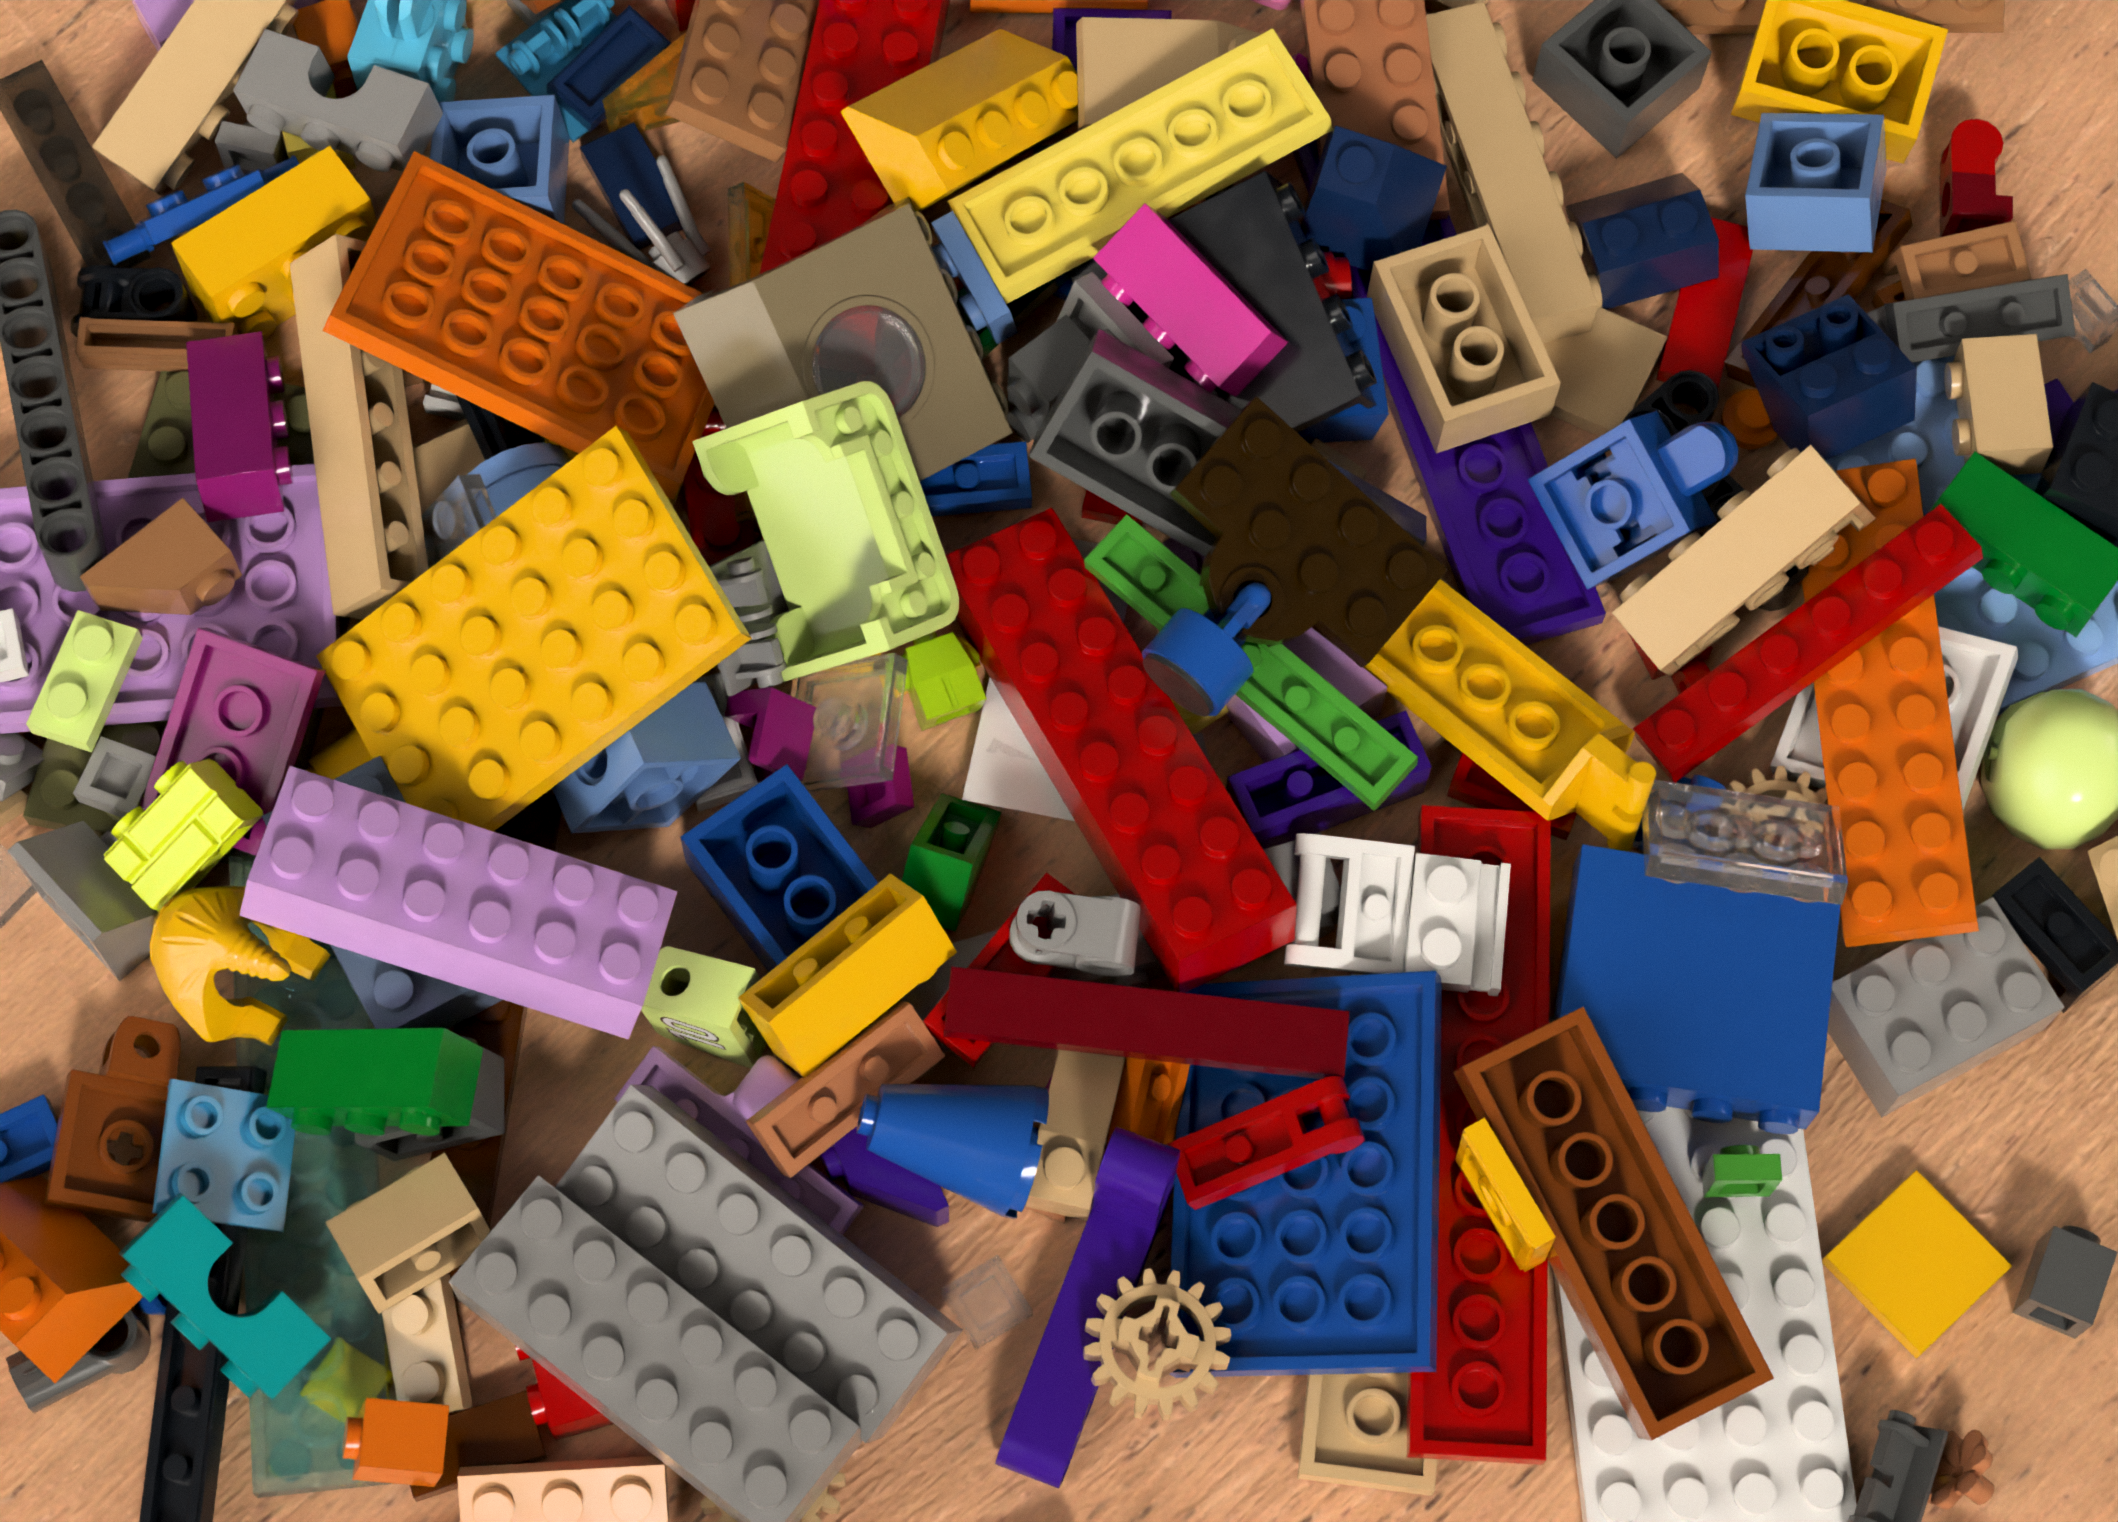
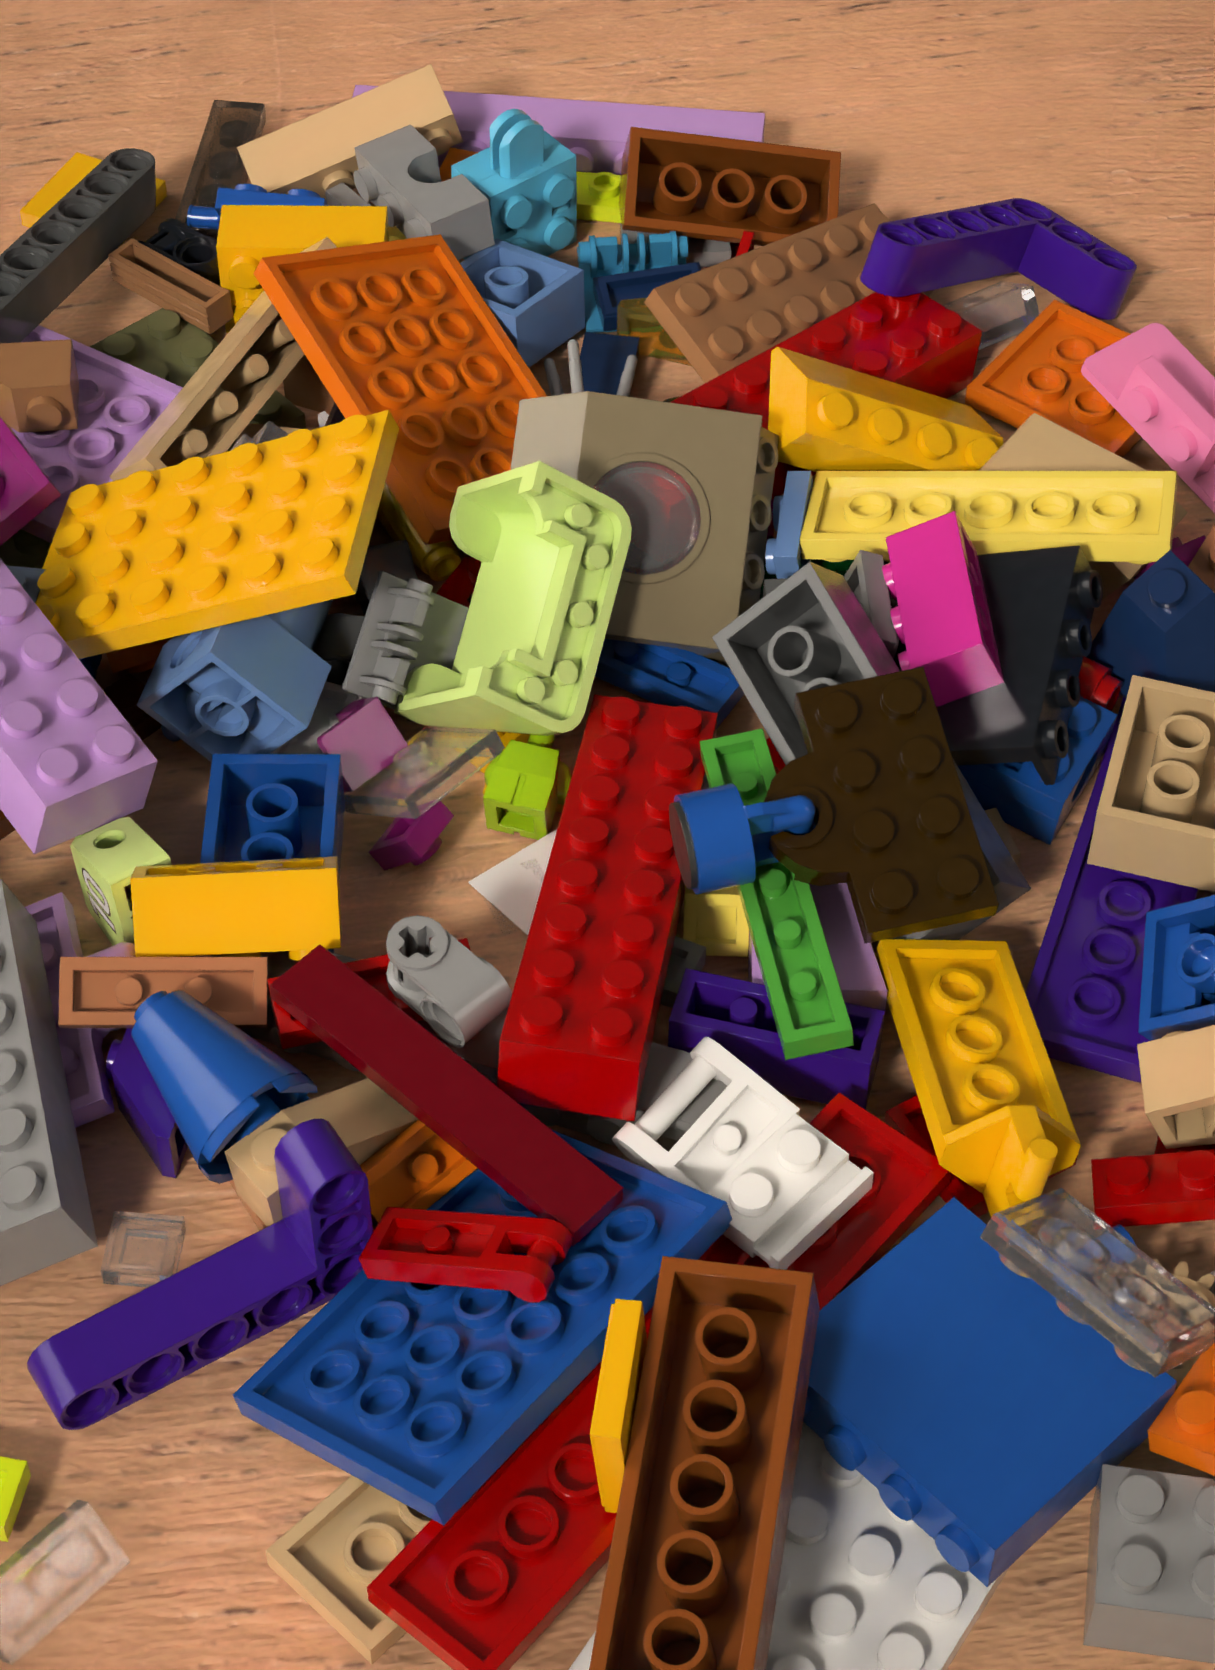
camera: 40 degrees right, 20 degrees down
(238, 426) = (158, 336): magenta brick -> none
(950, 856) = (405, 890): green slope -> none
(1187, 1349) = (230, 1354): tan gear -> none
(1741, 1173) = (882, 1568): bright green plate -> none

